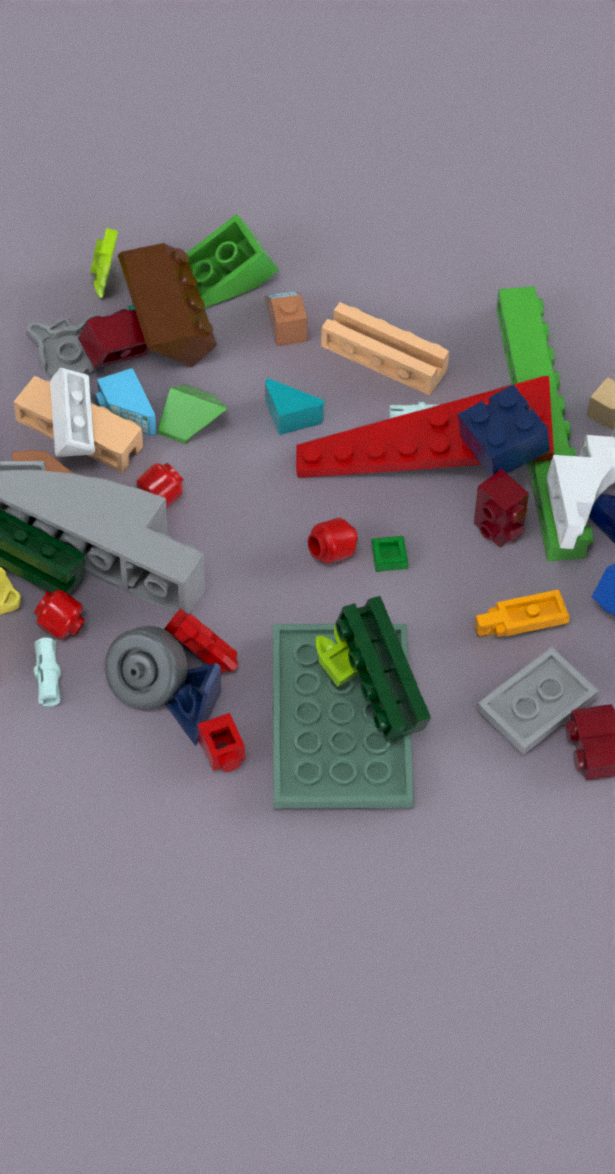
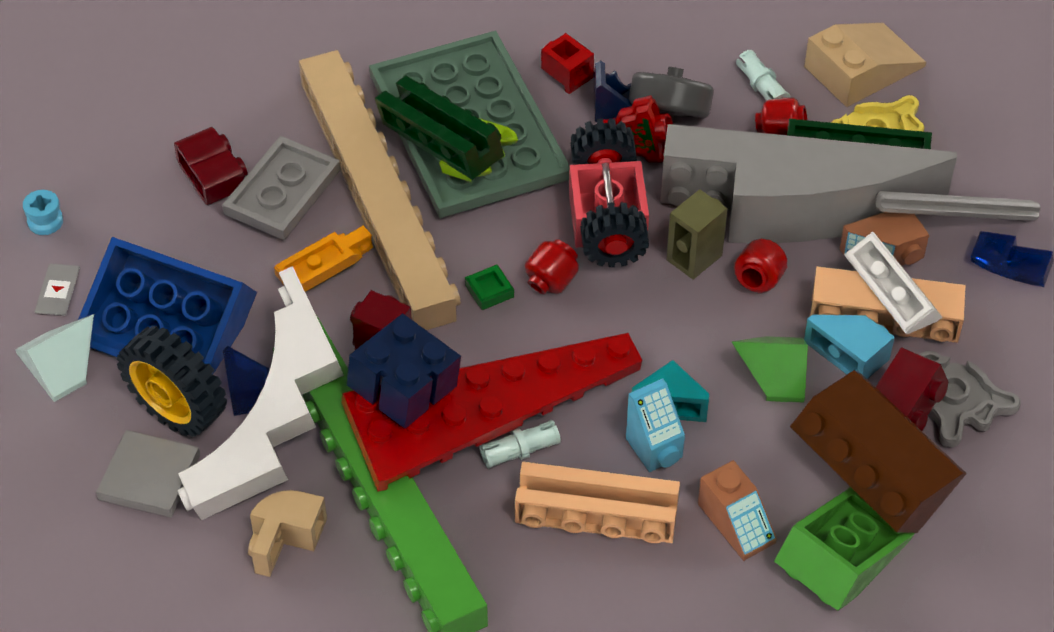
camera: 160 degrees right, 5 degrees down
(103, 259) = (982, 481): lime plate -> none
(202, 512) = (696, 234): none -> olive brick
(261, 565) = (608, 194): none -> brick
(319, 377) = (654, 426): none -> slope
(453, 676) = (378, 192): none -> tan brick

